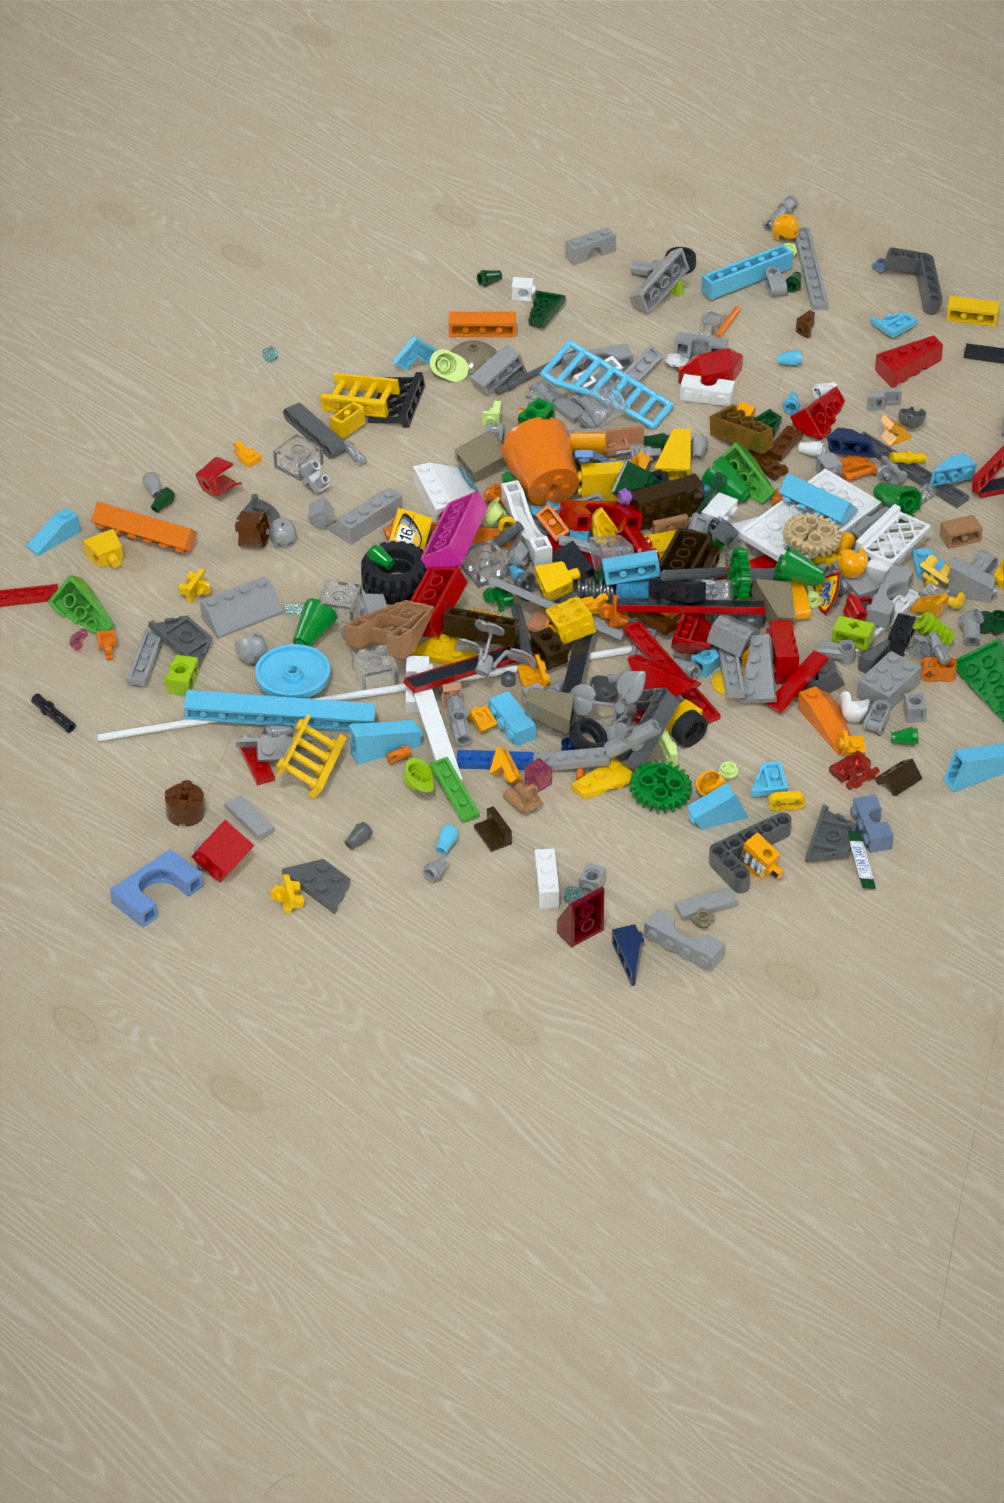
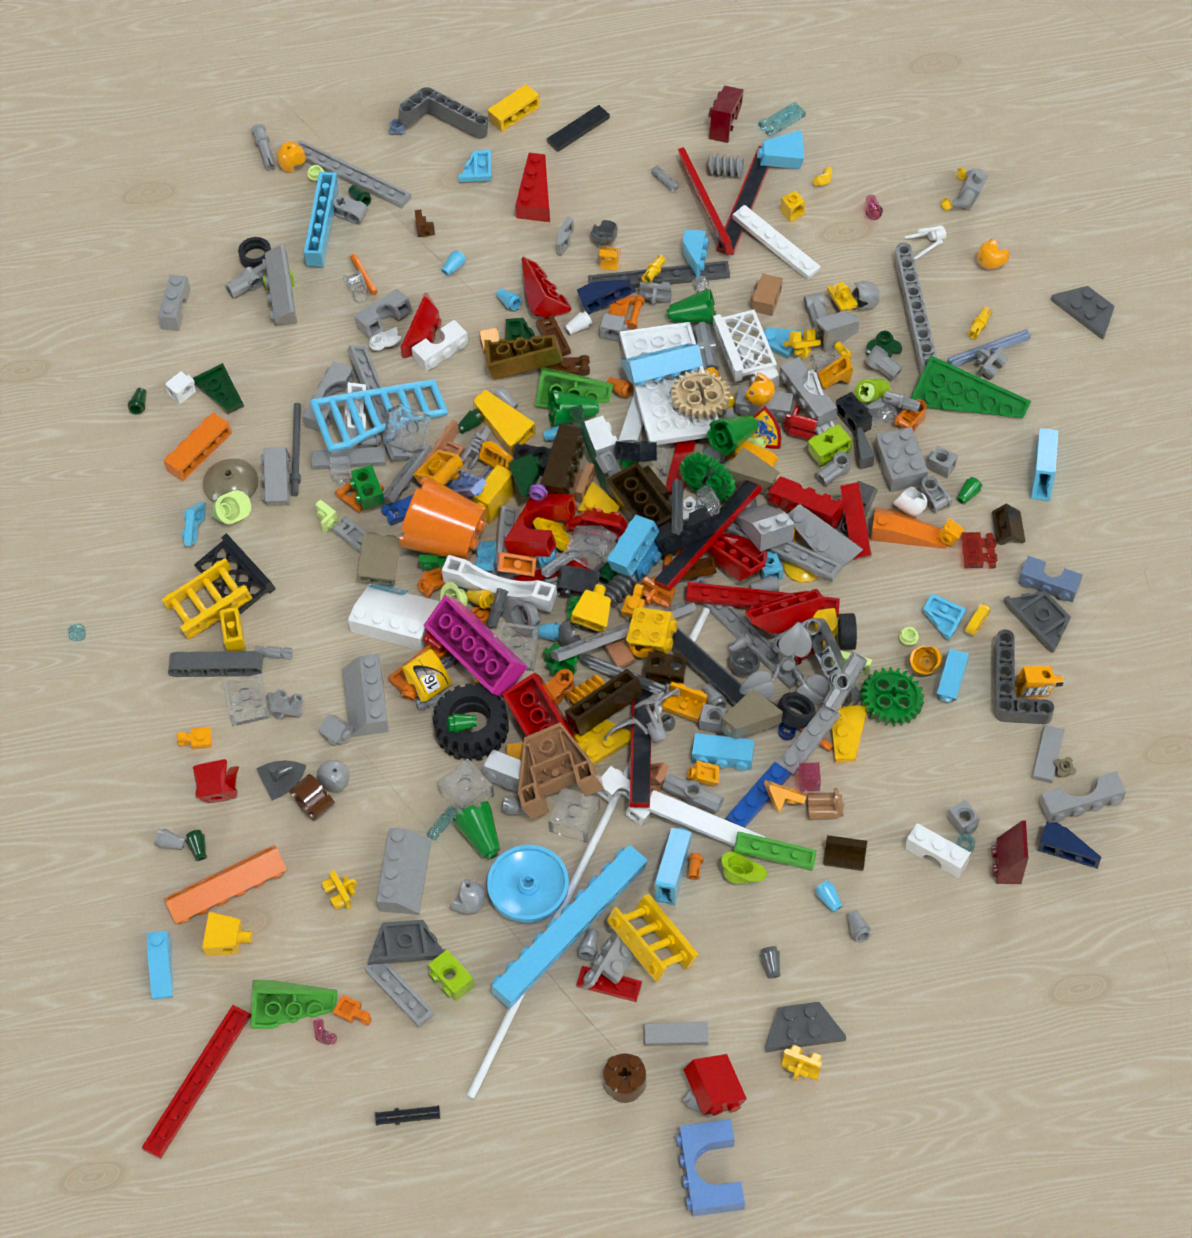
camera: 50 degrees left, 15 degrees up
(470, 600) = (559, 686): none -> orange piece
(821, 388) = (514, 268): white cone -> none
(861, 860) = (1083, 613): sticker -> none

